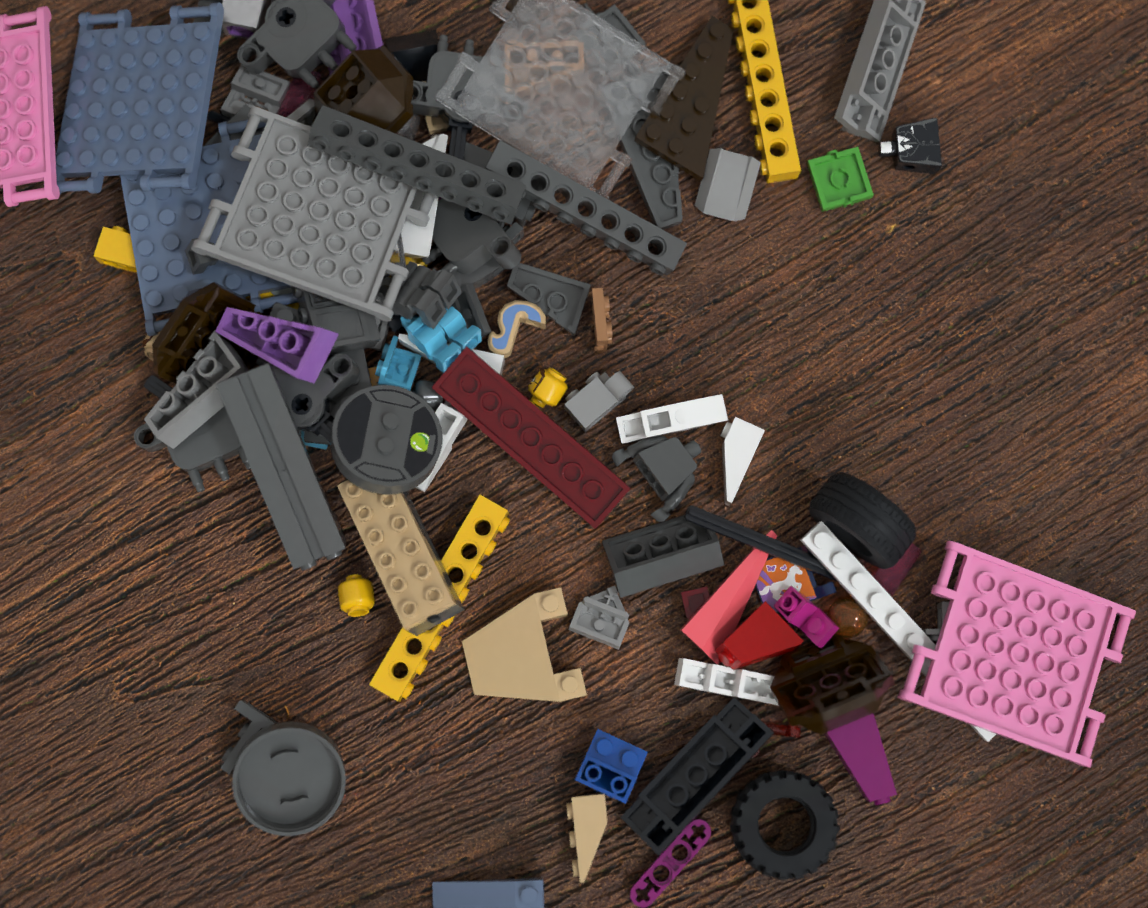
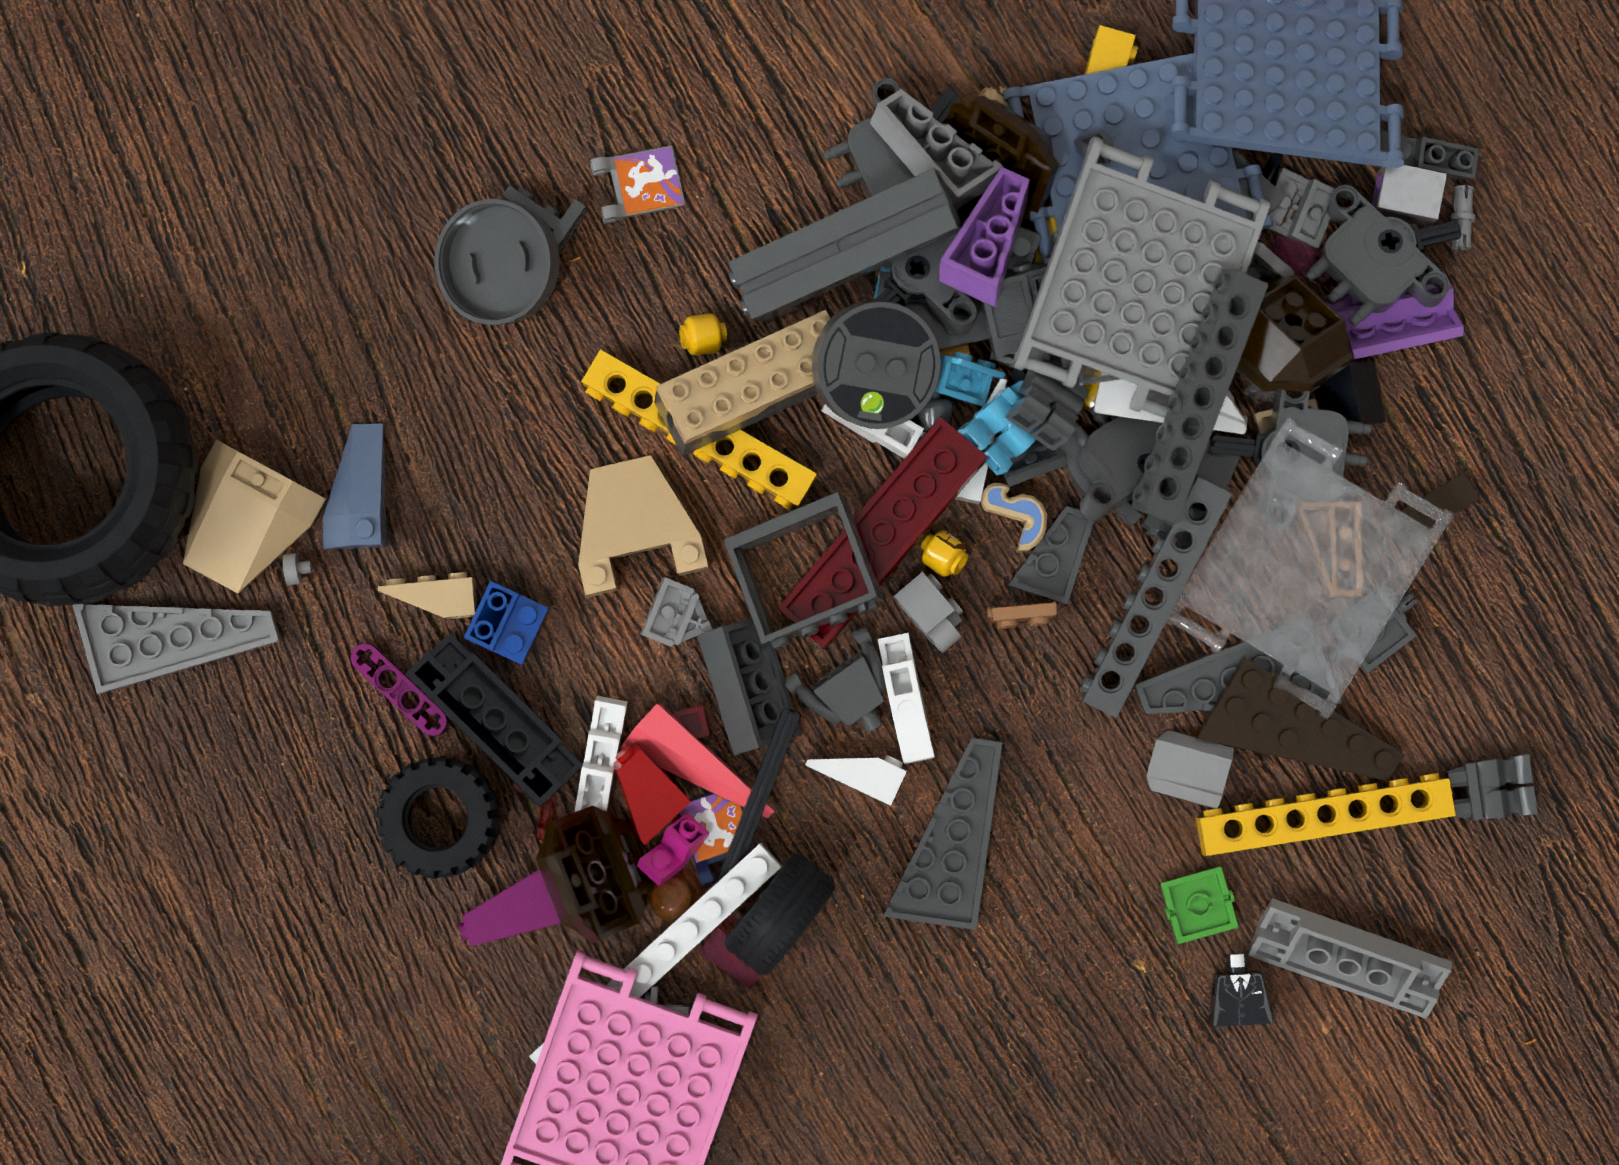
camera: 90 degrees right, 5 degrees up
(220, 651) = (642, 183): none -> flag
(523, 520) = (779, 527): none -> dark grey window
(808, 382) = (950, 860): none -> dark grey wing

